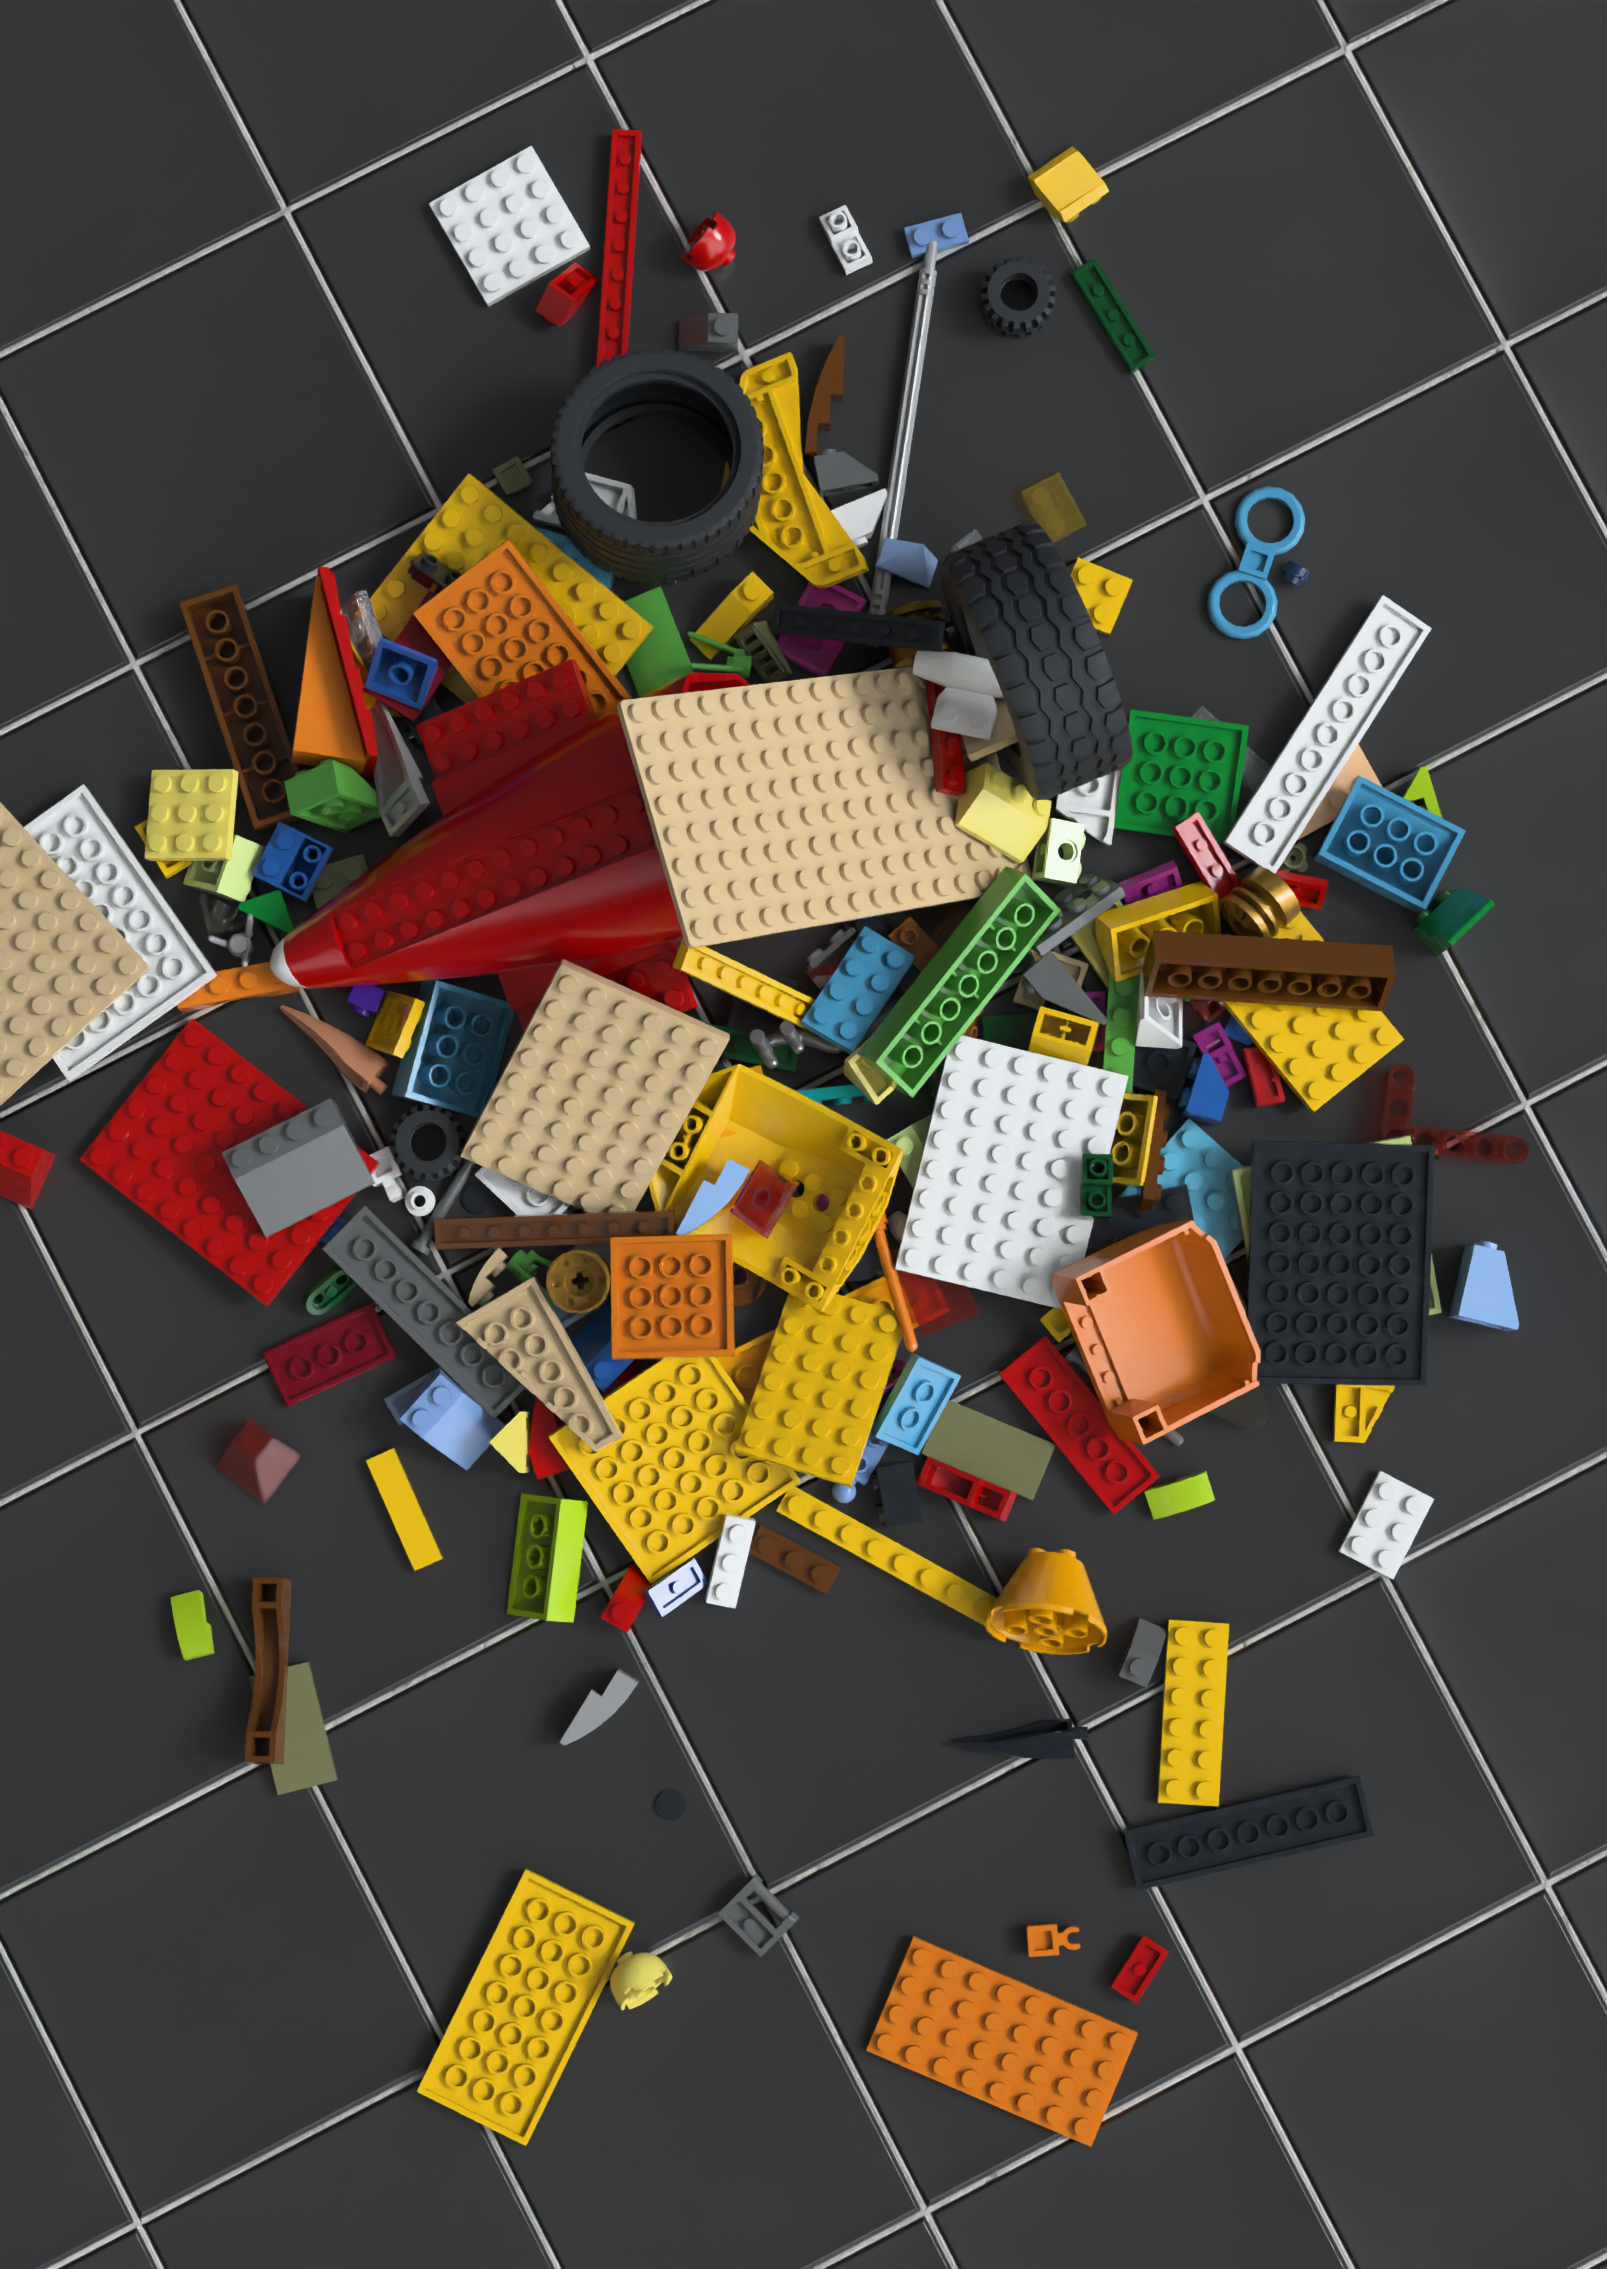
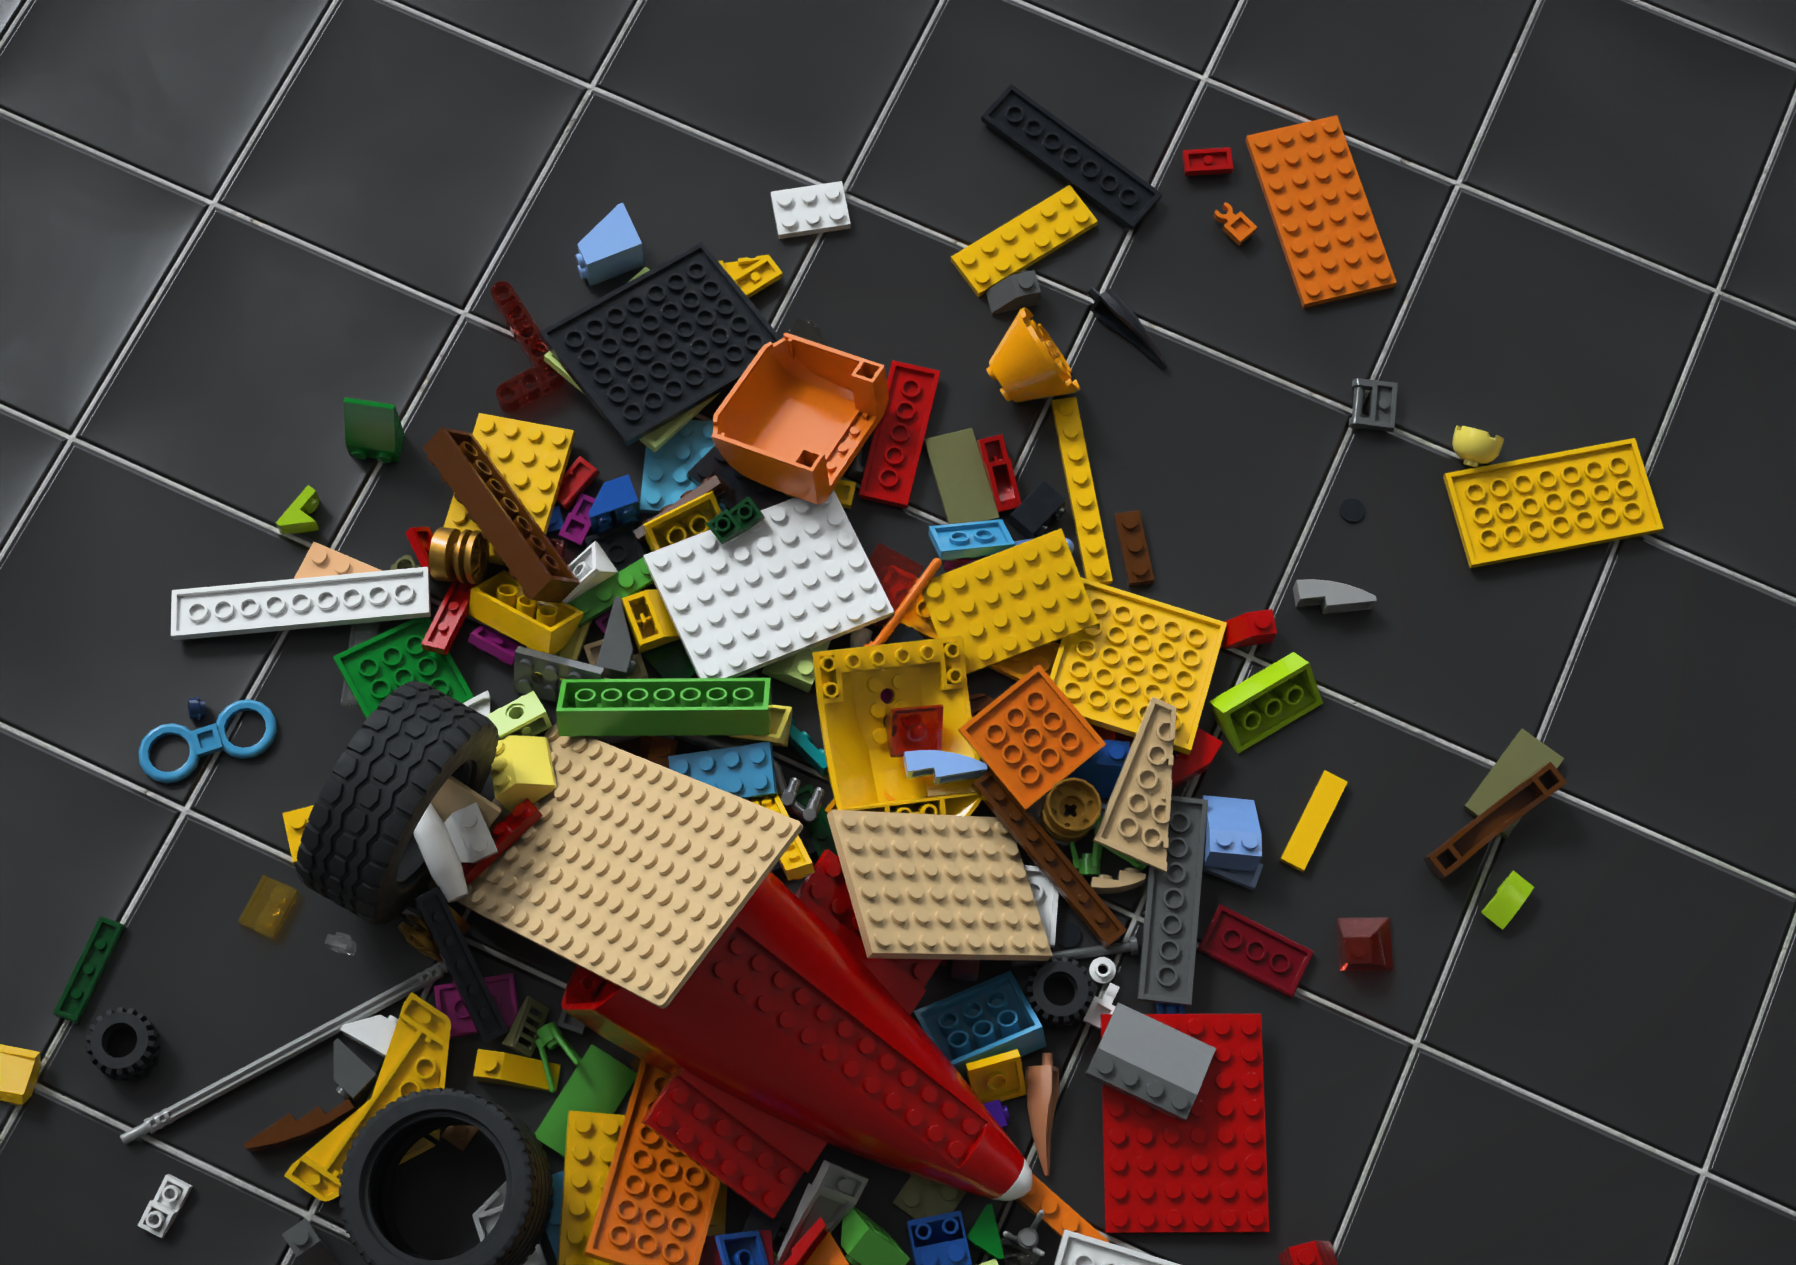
camera: 130 degrees left, 15 degrees down
(329, 1289) = (1215, 984): dark green plate -> none
(513, 1442) = (1210, 777): light yellow slope -> none
(675, 1587) = (1216, 604): plate -> none
(730, 1560) = (1169, 584): white plate -> none
(907, 561) = (384, 977): light blue slope -> none
(947, 231) = (107, 1137): medium blue plate -> none
(1179, 1495) = (892, 338): lime slope -> none
(1389, 845) = (350, 508): dark azure slope -> none

